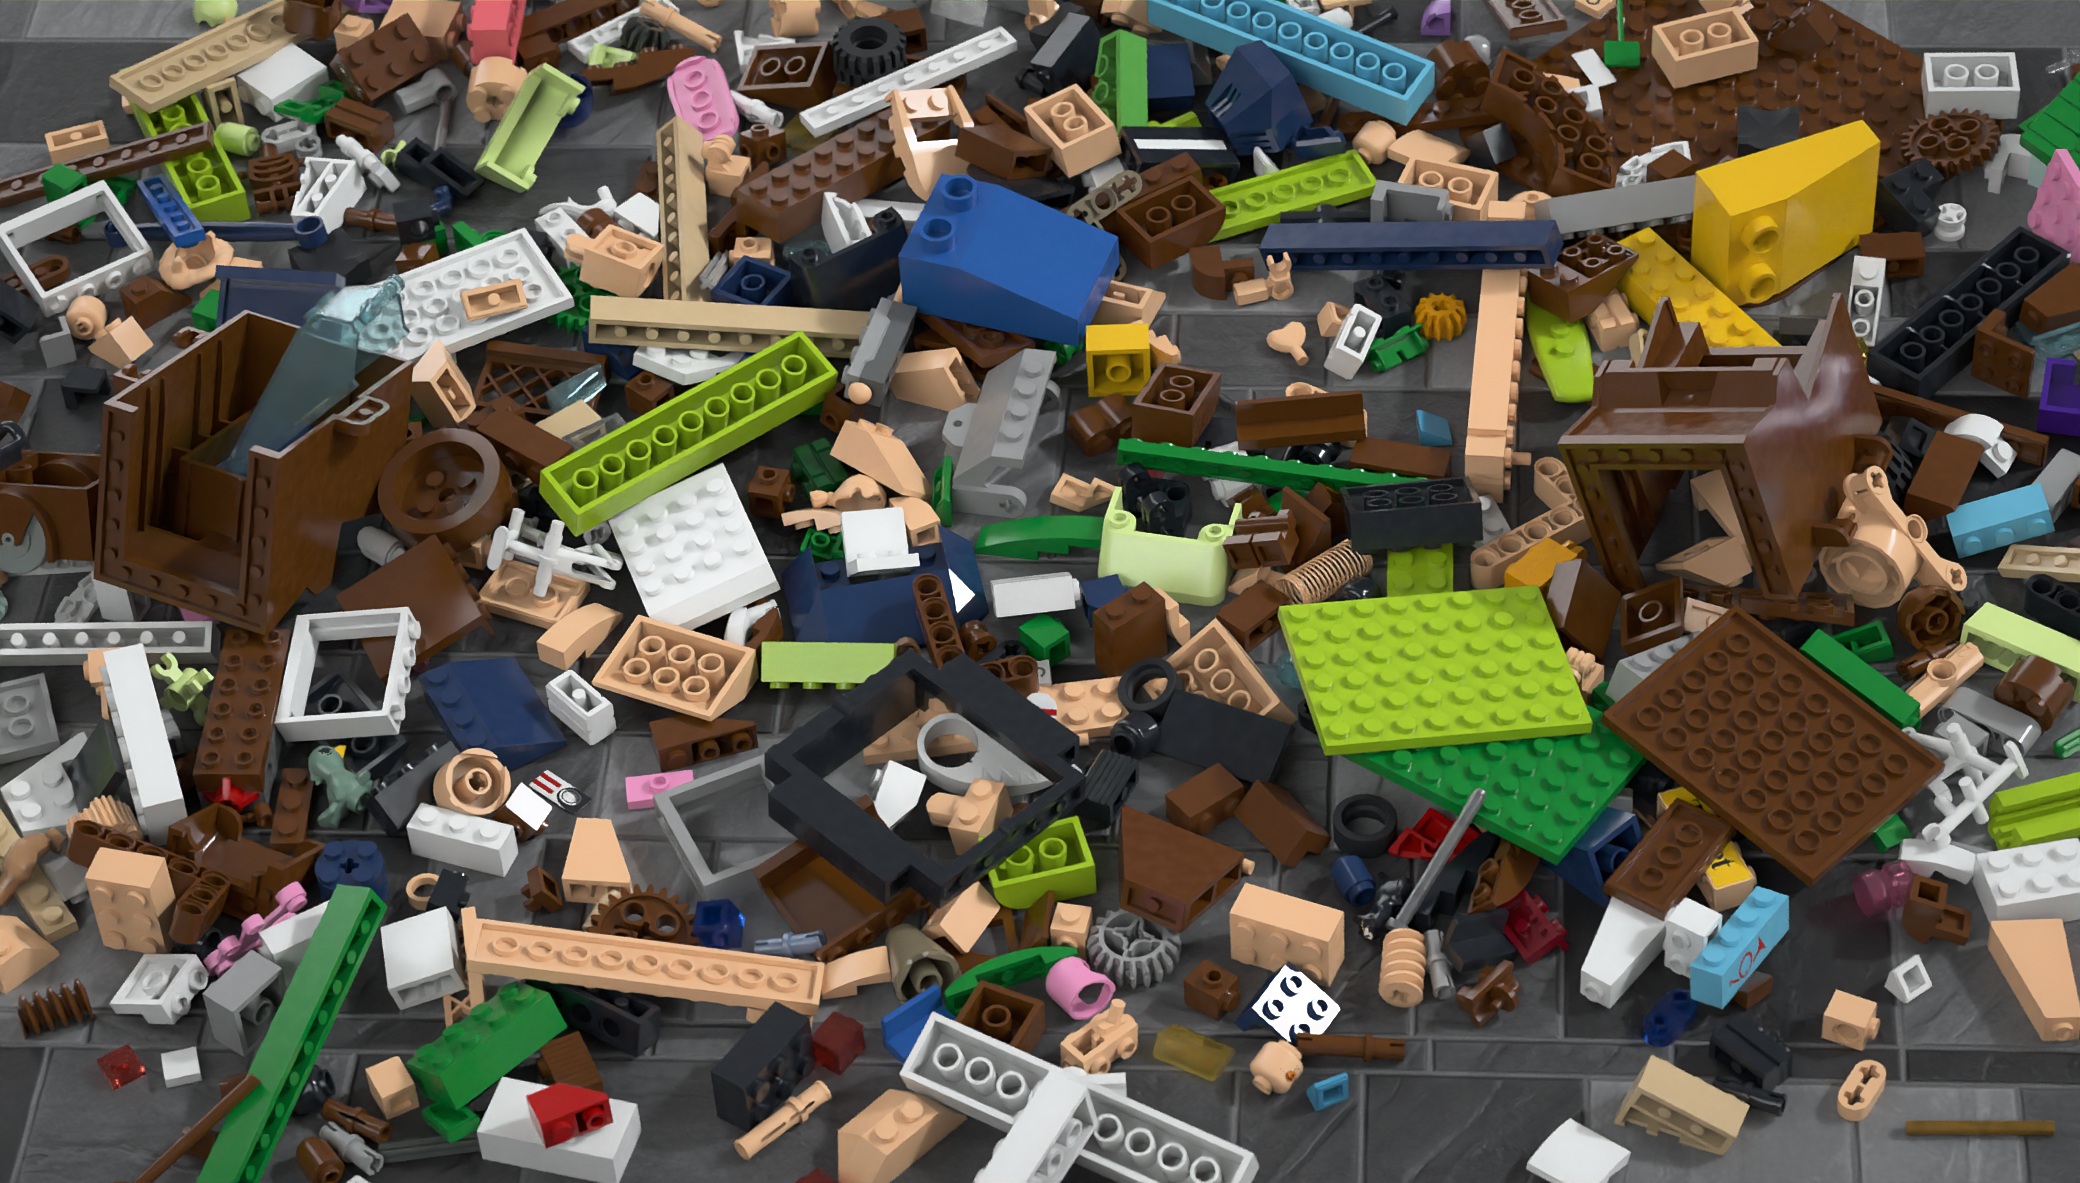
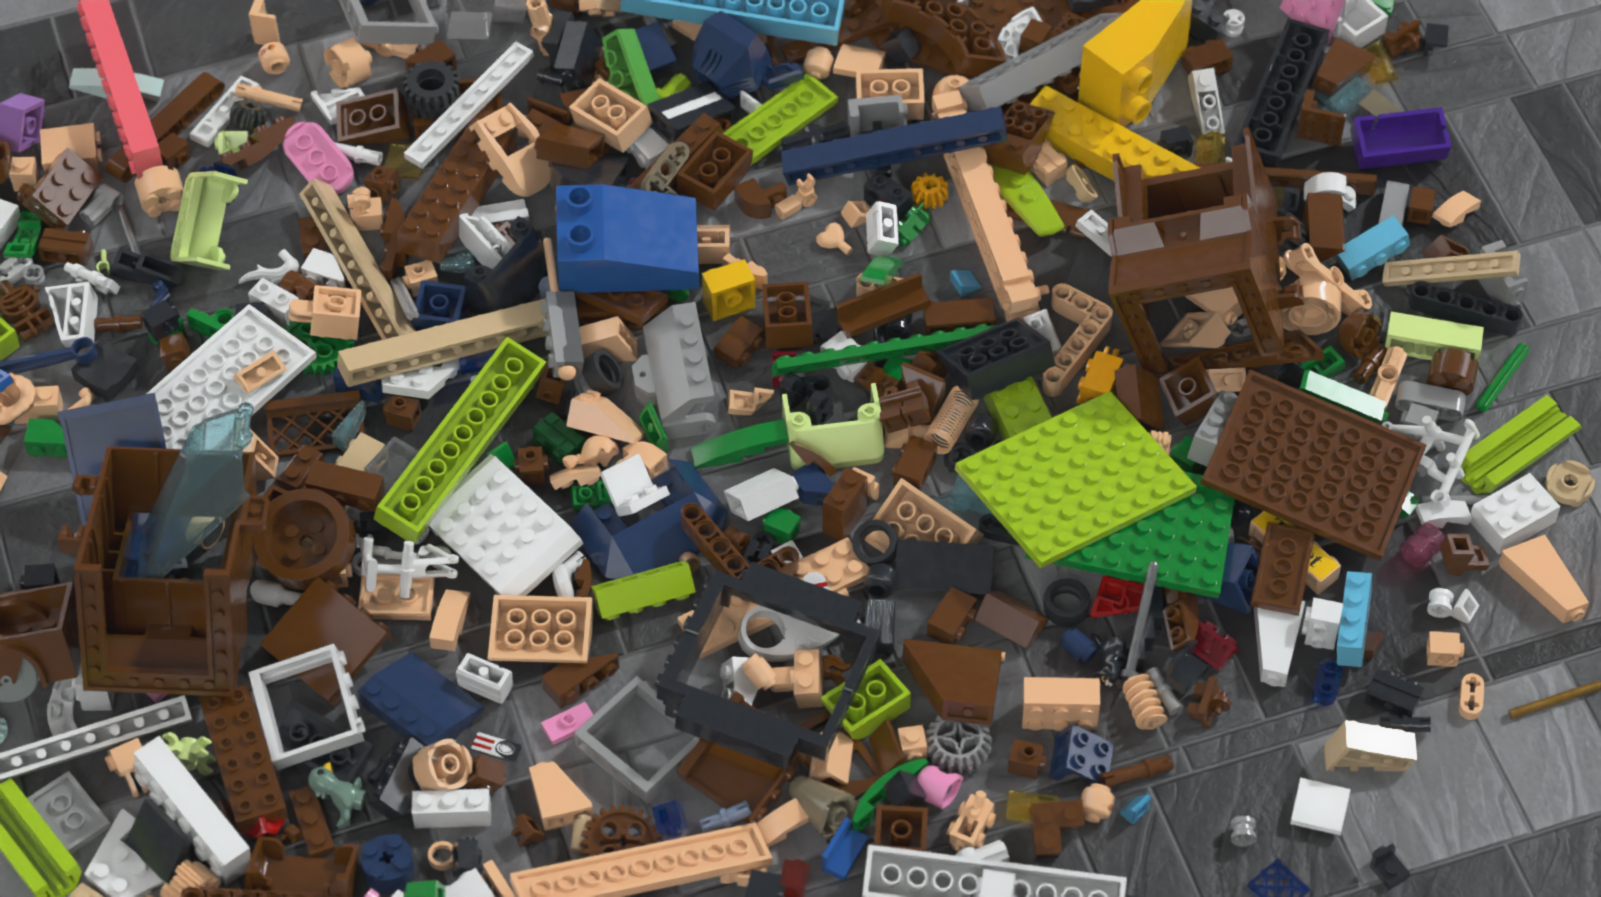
camera: 25 degrees left, 10 degrees up
(739, 472) = (504, 454): none -> green slope
(898, 418) = (602, 373): none -> black tyre
(914, 787) = (759, 672): none -> light nougat brick
(1028, 970) = (902, 787): none -> black panel
(1114, 562) = (808, 455): none -> reddish brown slope
(1198, 1065) = (1048, 821): none -> reddish brown brick
(1318, 380) = (882, 270): none -> green slope
(1456, 1157) = (1243, 830): none -> light grey wheel
(1496, 502) = (1042, 323): none -> white hips
(1874, 964) = (1440, 602): none -> white wheel

